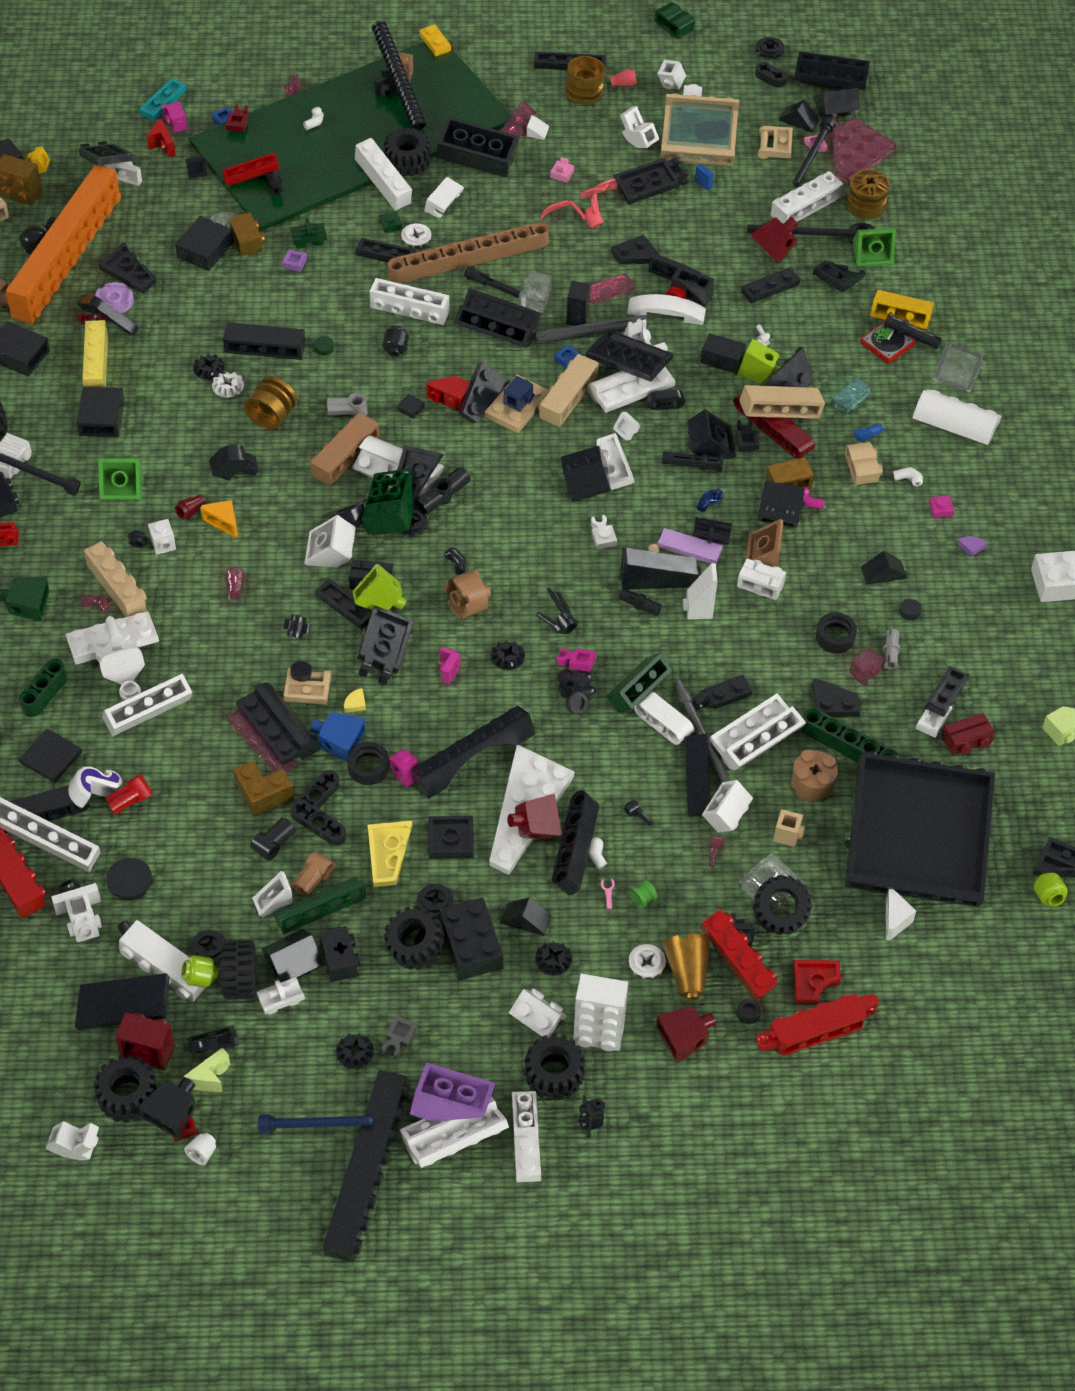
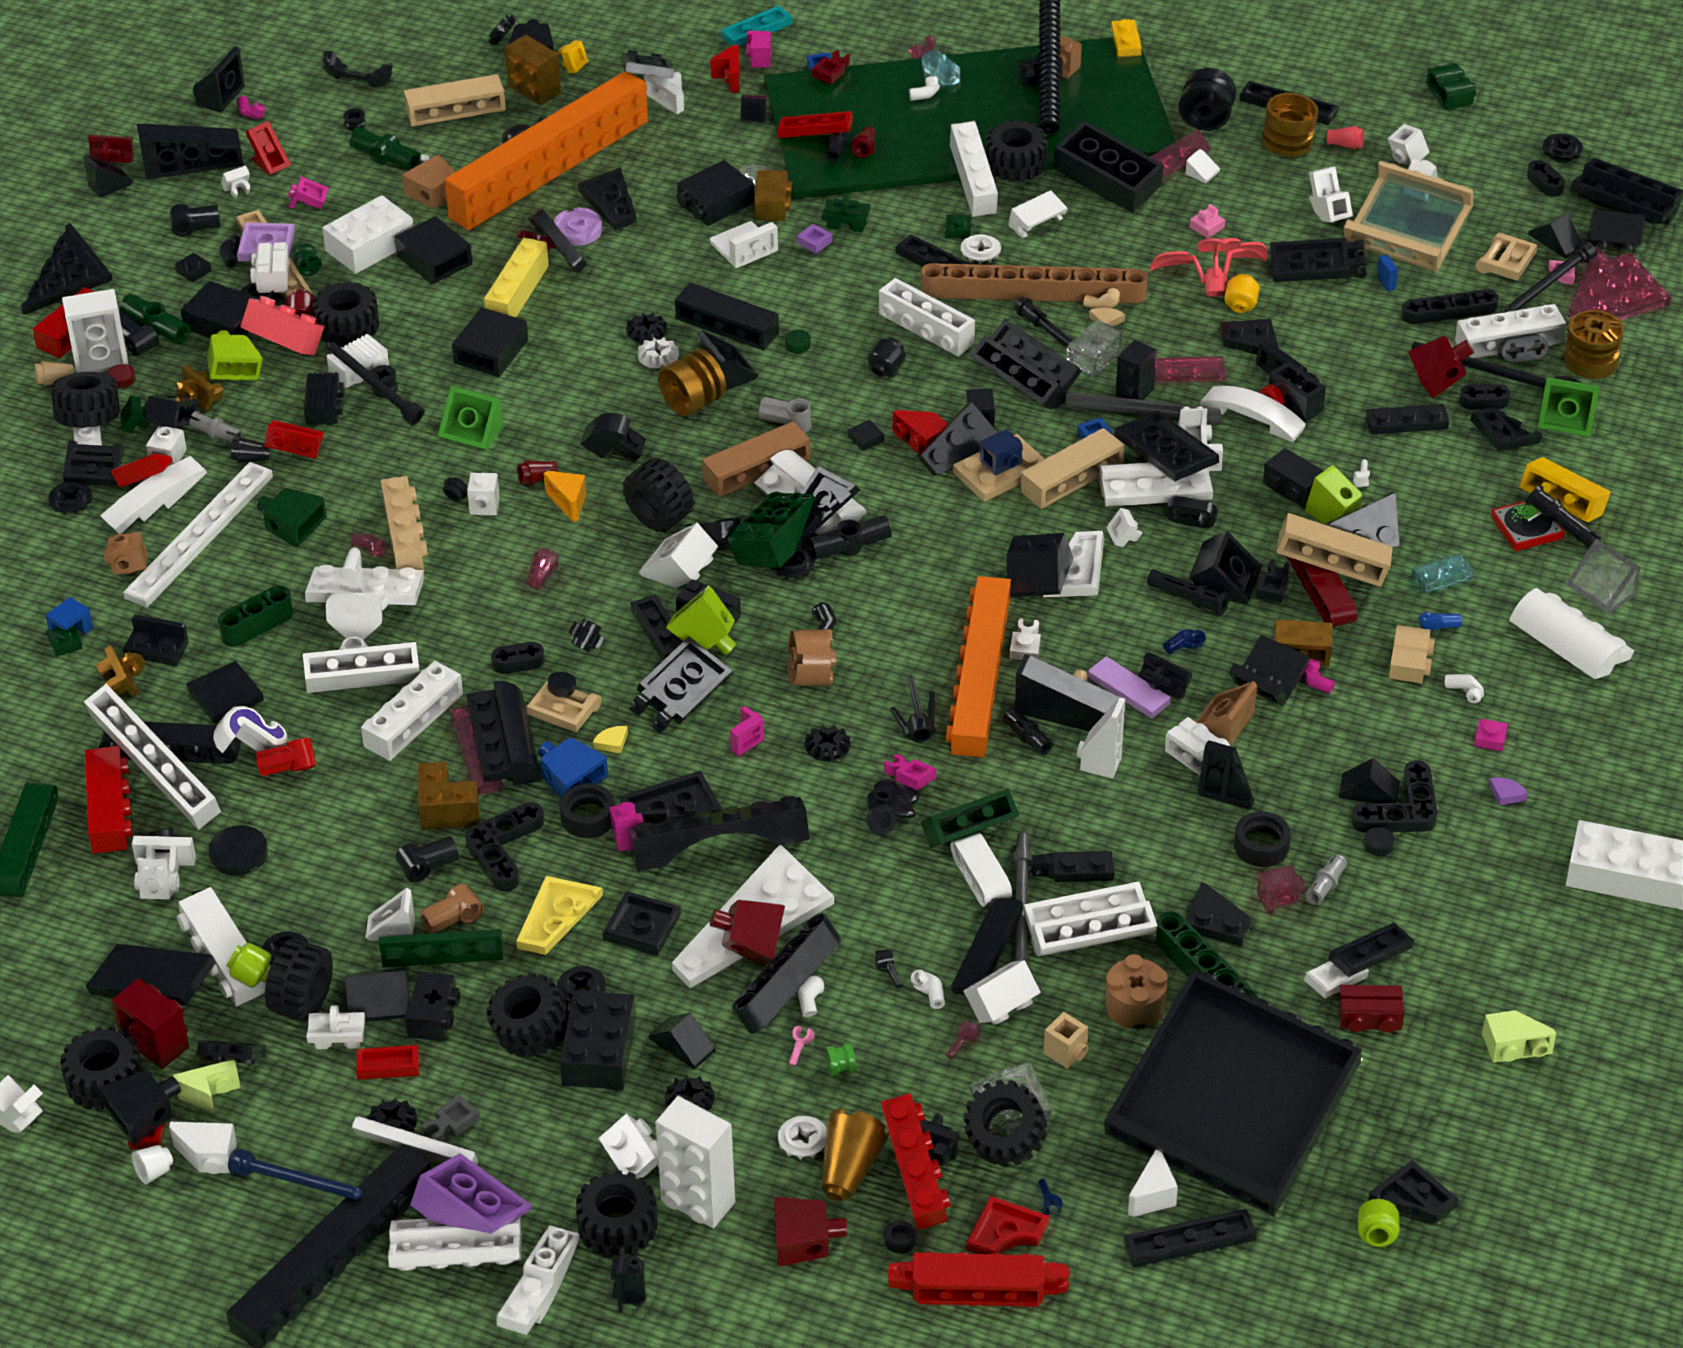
camera: 25 degrees right, 10 degrees down
(37, 461) = (387, 375): none -> black wheel
(200, 726) = (411, 710): none -> white brick
(233, 1121) = (205, 1144): none -> white slope
(246, 278) = (746, 243): none -> white bracket
(253, 659) = (517, 657): none -> black beam
(278, 370) = (732, 363): none -> black slope
(293, 174) = (864, 143): none -> dark red cone
(295, 500) = (658, 494): none -> black tyre
(316, 98) = (939, 65): none -> clear light blue plate
(327, 1007) = (387, 1062): none -> red tile
(384, 1064) = (415, 1142): none -> white tile
(426, 734) = (674, 798): none -> black wing
(481, 354) = (984, 401): none -> black brick
(519, 75) = (1207, 99): none -> black wheel
(524, 254) = (1108, 300): none -> tan arm
(530, 263) = (1107, 315): none -> tan tile
(584, 563) = (980, 667): none -> orange brick
(615, 220) = (1241, 292): none -> yellow head
(673, 817) = (929, 985): none -> white arm
(738, 200) = (1421, 310): none -> black beam
(791, 595) = (1224, 775): none -> black wing
(813, 253) = (1484, 396): none -> black beam
(820, 206) = (1522, 343): none -> black beam
(832, 948) = (1049, 1199): none -> clear blue hand
(918, 576) = (1409, 811): none -> black beam
(935, 943) = (1189, 1238): none -> black tile

